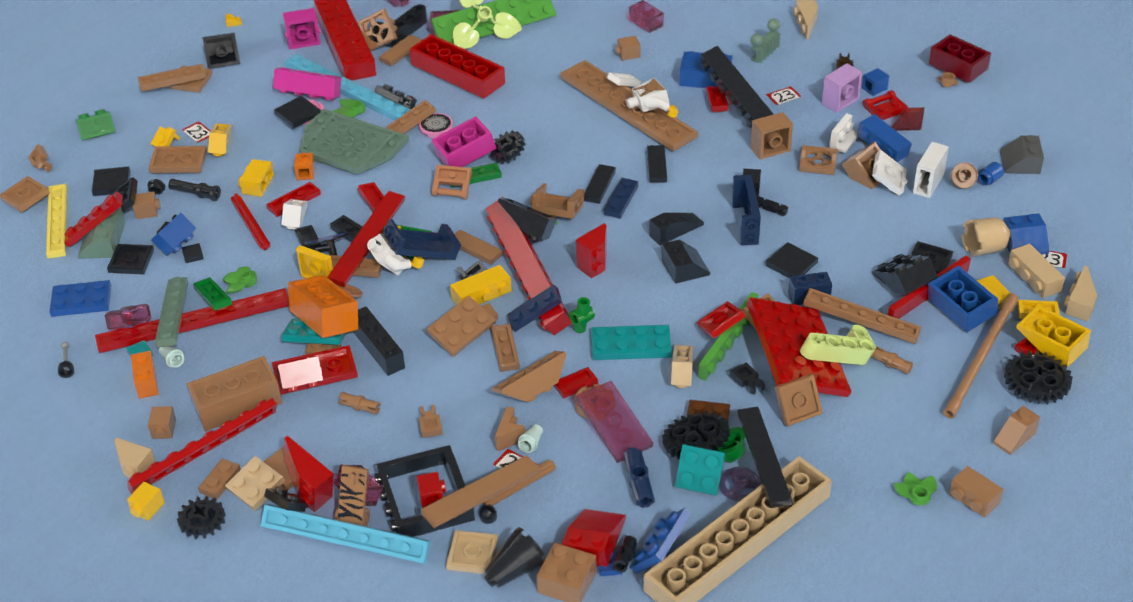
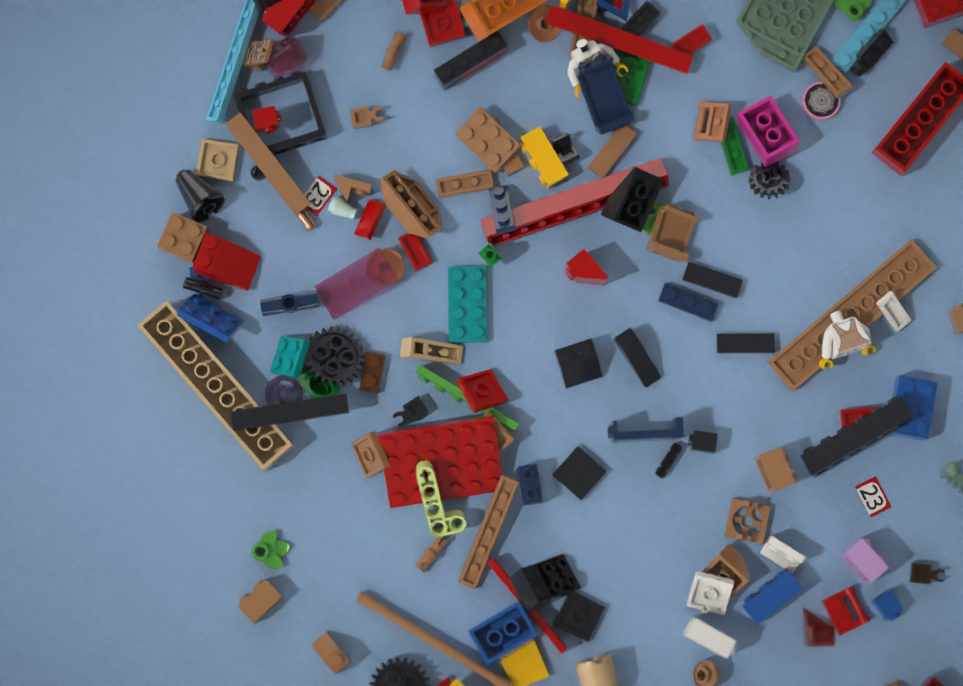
camera: 90 degrees right, 40 degrees up
(543, 414) = (369, 219): none -> red tile

